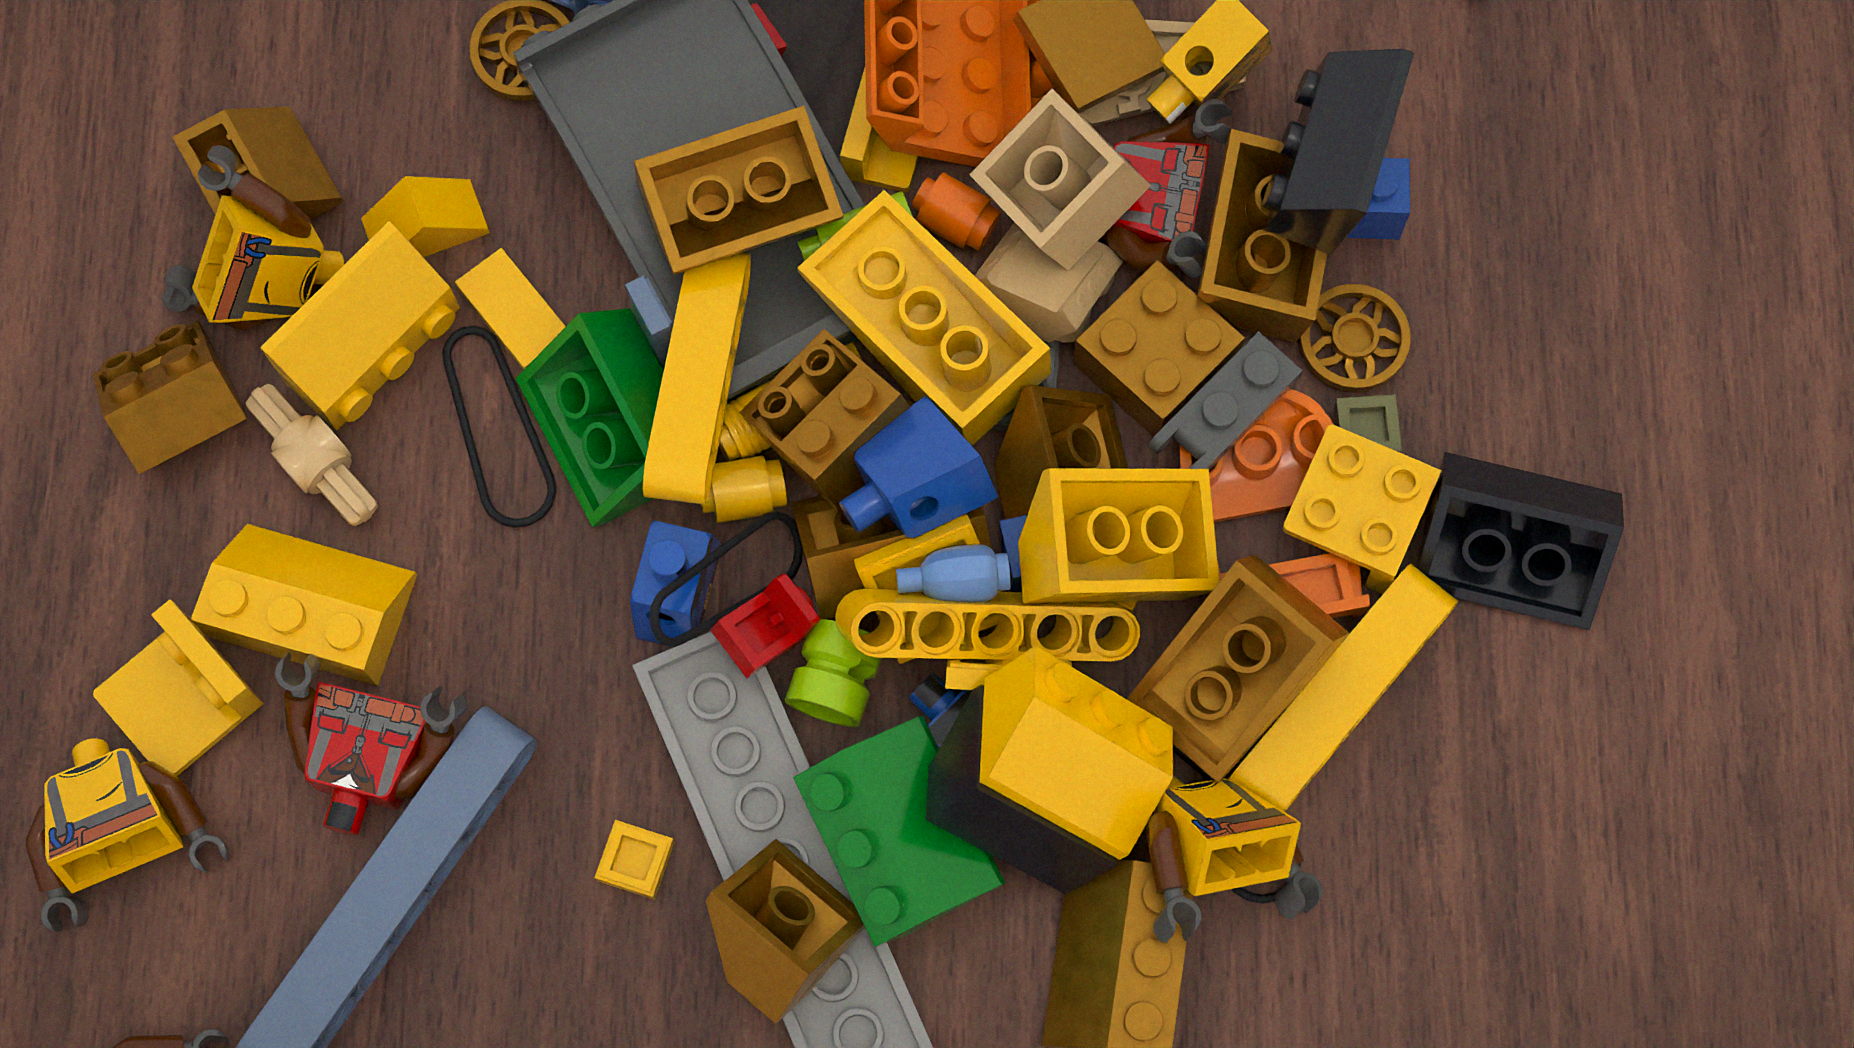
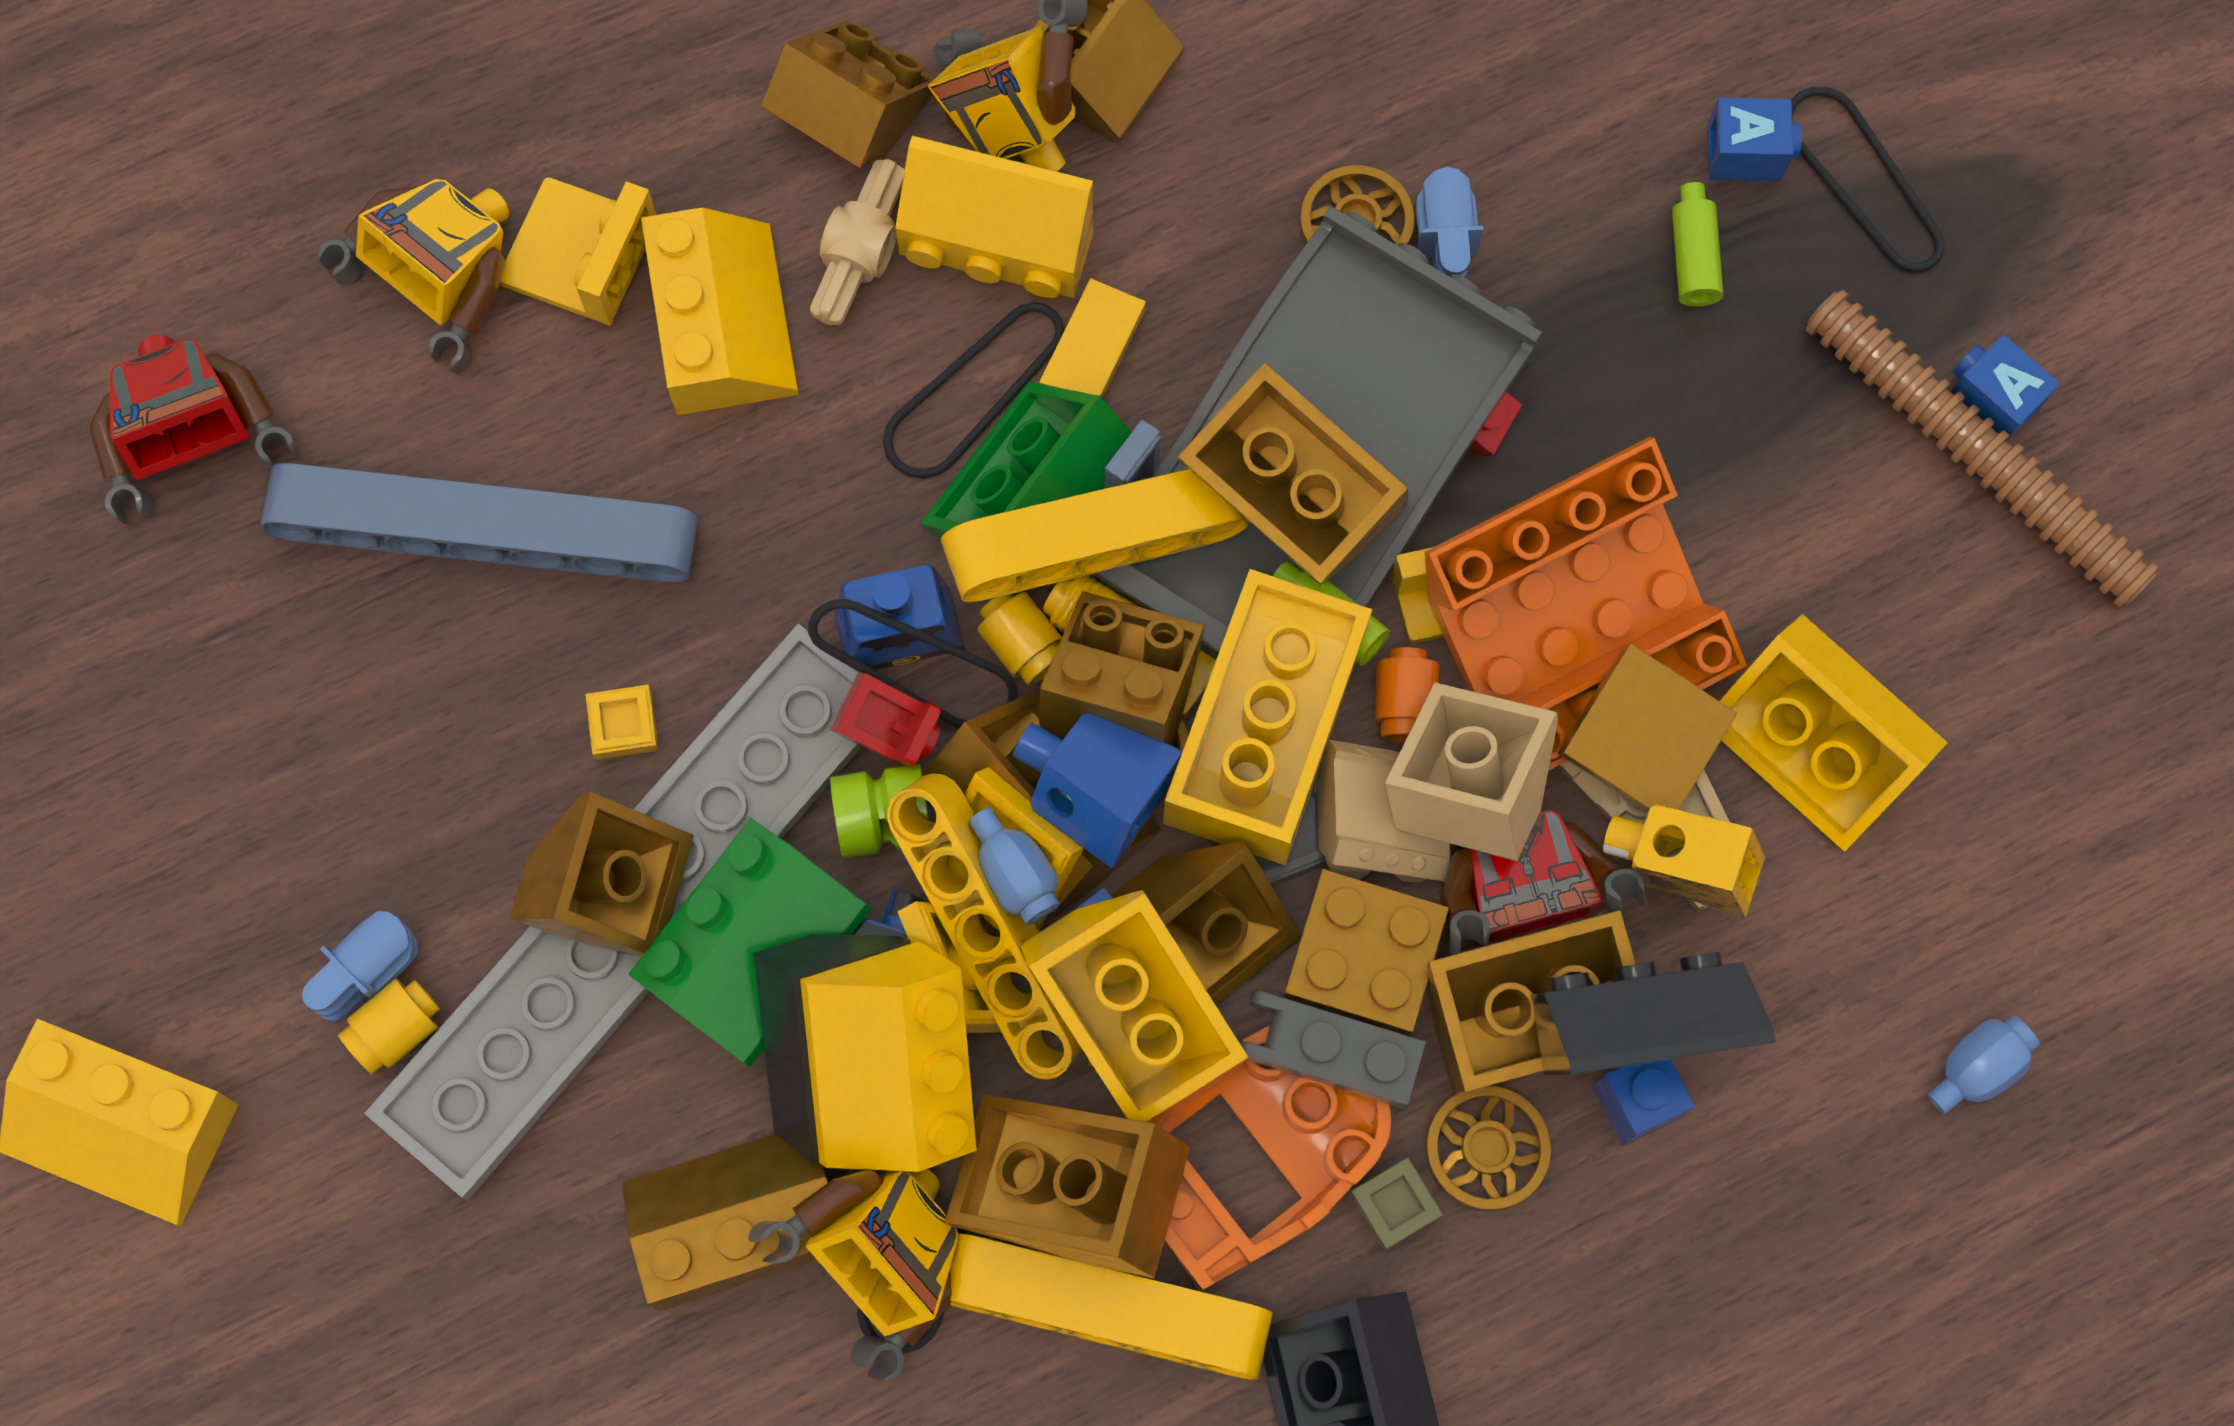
camera: 60 degrees right, 0 degrees up
(362, 743) = (607, 422): torso -> none
(429, 213) = (1143, 222): yellow slope -> none
(1361, 503) = (1303, 1232): yellow bracket -> none

